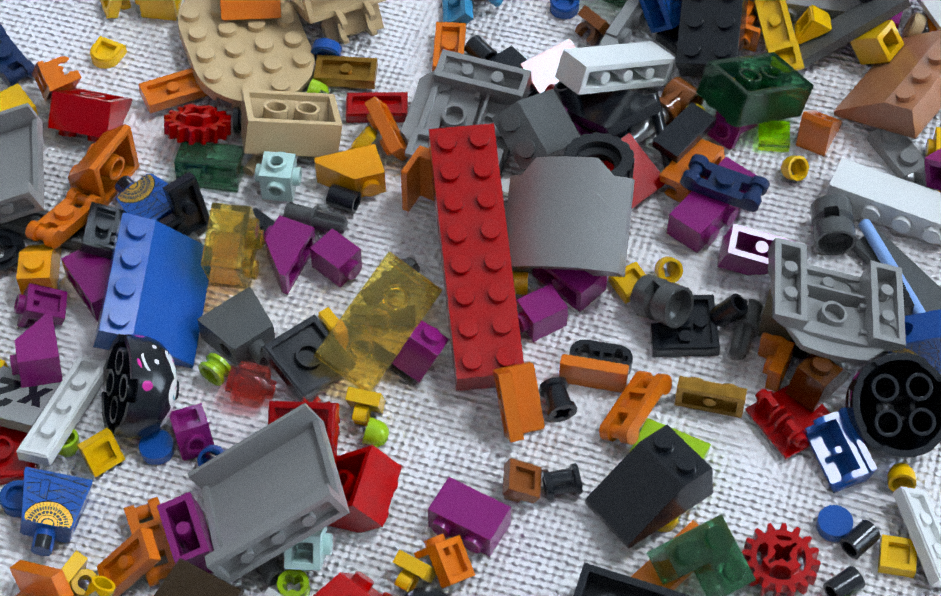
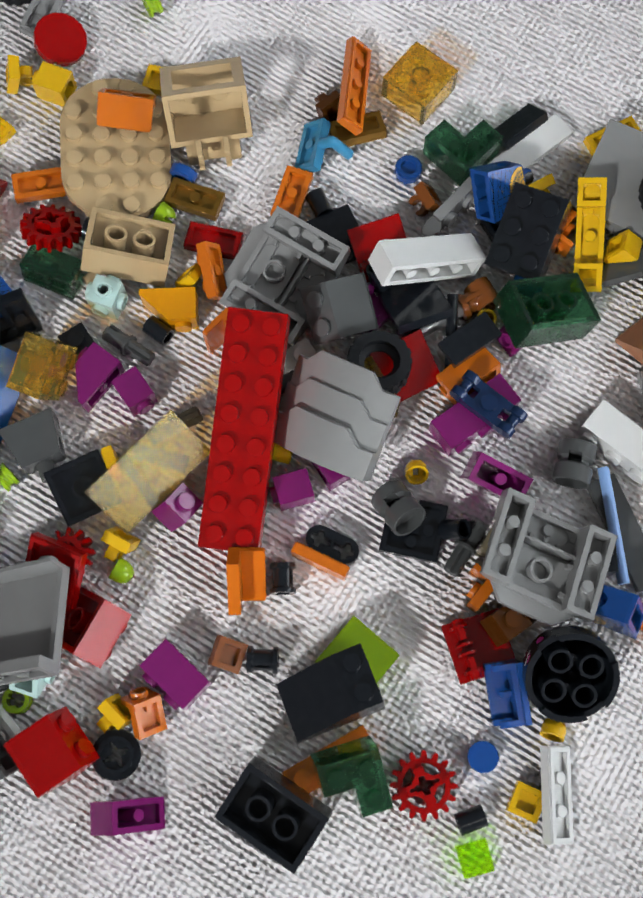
camera: 15 degrees right, 20 degrees up
(250, 384) = (29, 500): clear red head -> none
(624, 285) = (383, 473): yellow tile -> none
(634, 407) = (345, 603): orange plate -> none
(710, 396) = (425, 614): pearl gold plate -> none
(774, 136) = (553, 354): clear neon green tile -> none
(797, 165) = (564, 390): yellow hinge -> none
(817, 131) = (594, 357): orange slope -> none
(860, 539) = (499, 779): black hinge -> none

